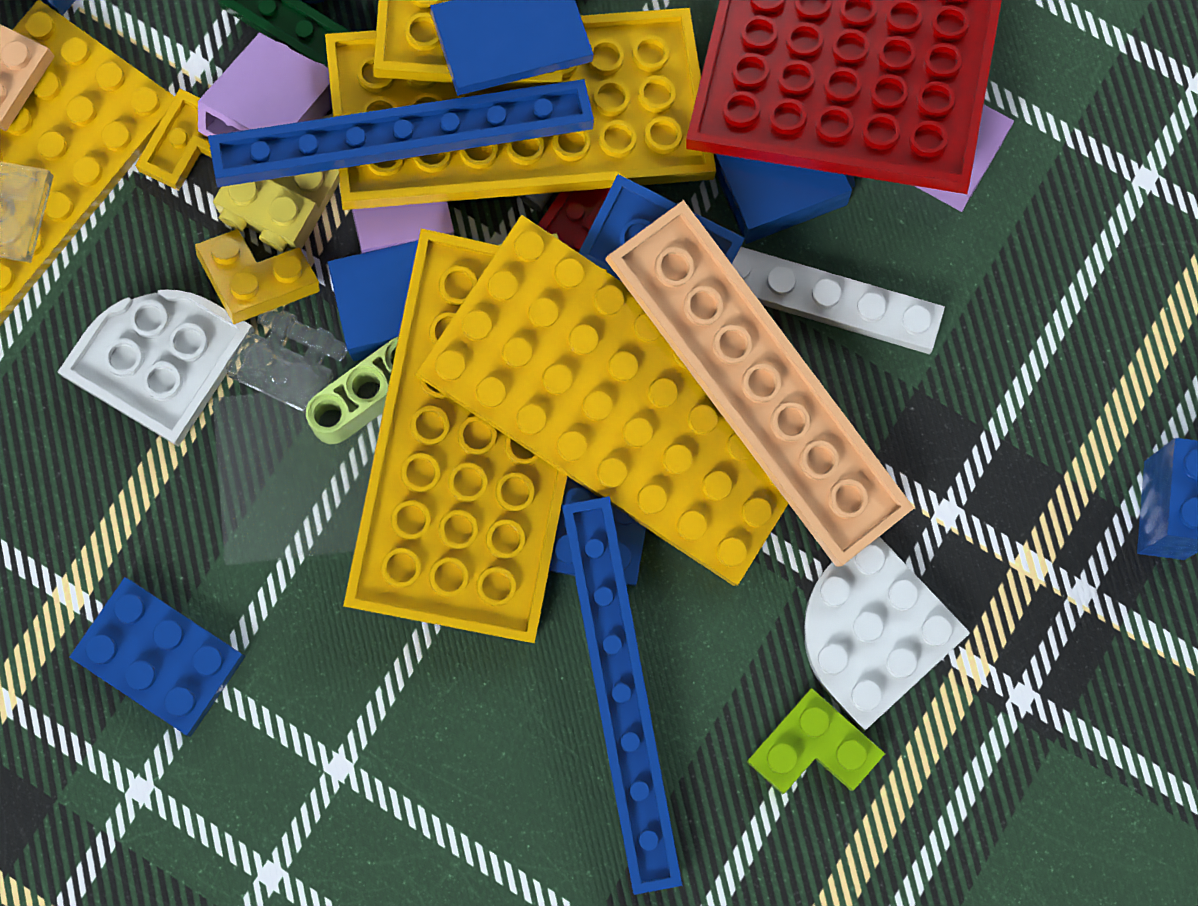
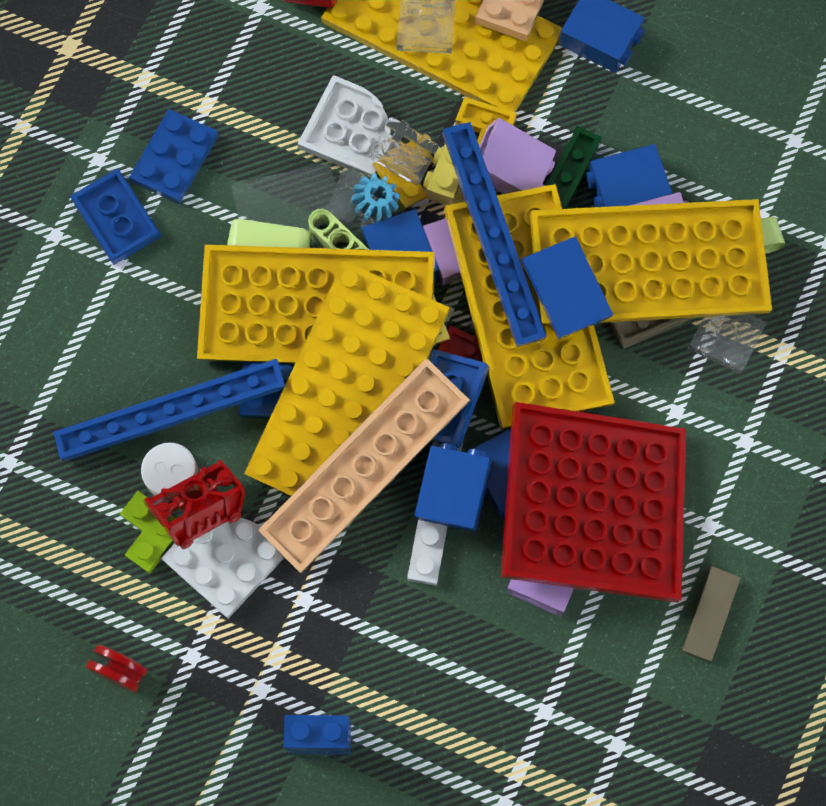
camera: 80 degrees right, 5 degrees down
(233, 274) = (398, 156): none -> clear plate
(252, 766) = (115, 216): none -> blue tile
(300, 305) = (380, 189): none -> medium azure gear
(339, 508) = (266, 234): none -> yellowish green beam
(722, 704) = (167, 466): none -> white head
(810, 251) = (454, 487): none -> blue brick
(813, 648) = (202, 503): none -> red piece
(1049, 809) = (119, 669): none -> red head

